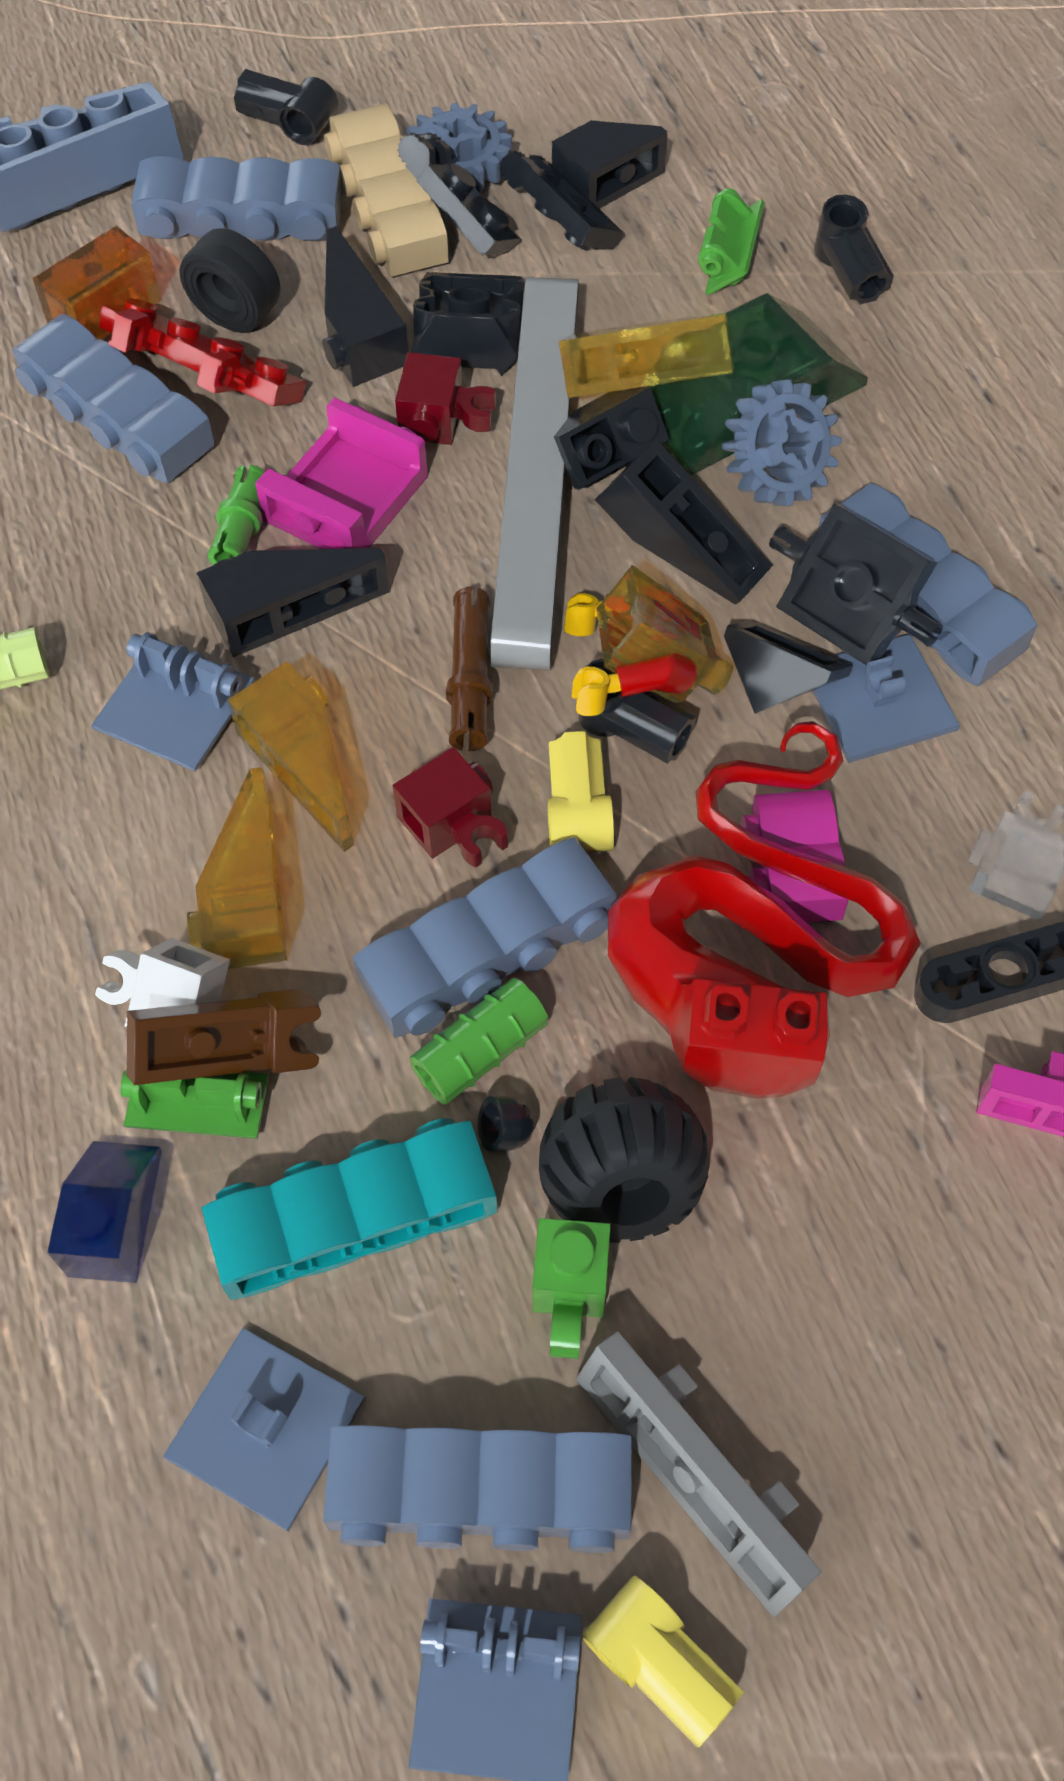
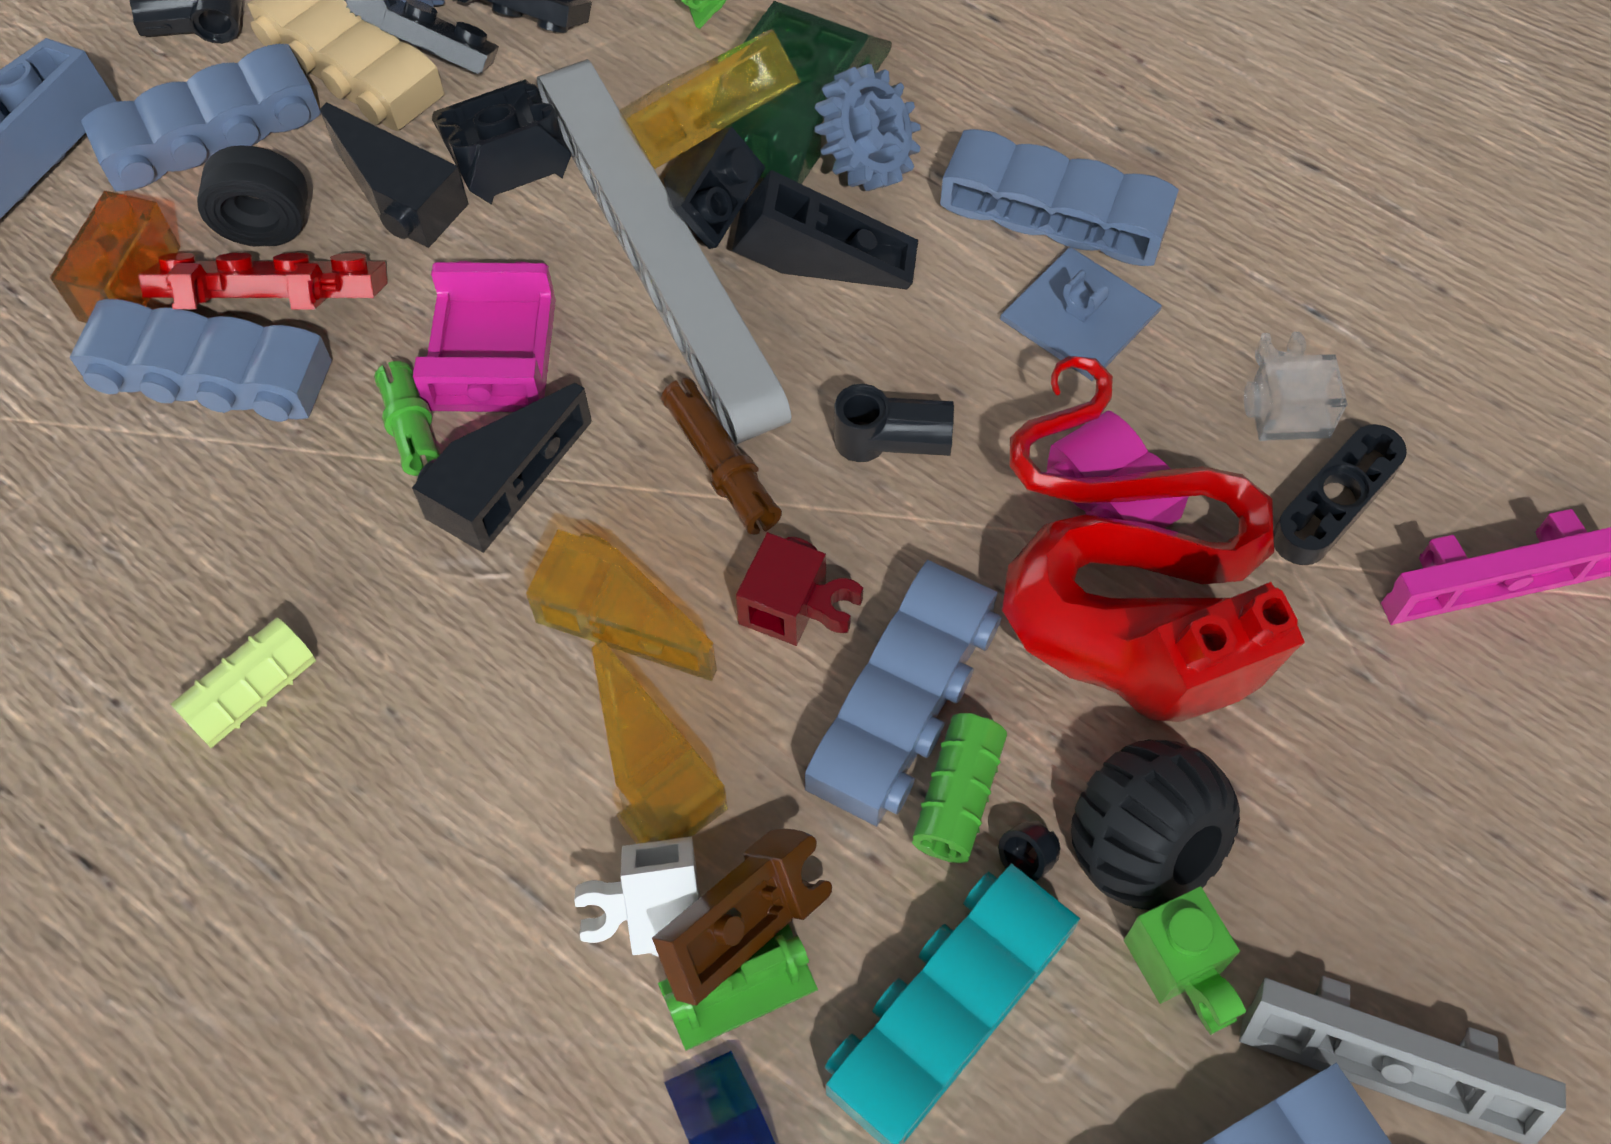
camera: 30 degrees left, 0 degrees up
(171, 701) = (458, 623): sand blue hinge -> none
(434, 399) = (524, 225): dark red brick -> none
(578, 793) = (897, 524): light yellow piece -> none
(646, 641) = (873, 350): torso -> none
(778, 666) = (987, 325): black slope -> none
(856, 585) = (1013, 223): black plate -> none

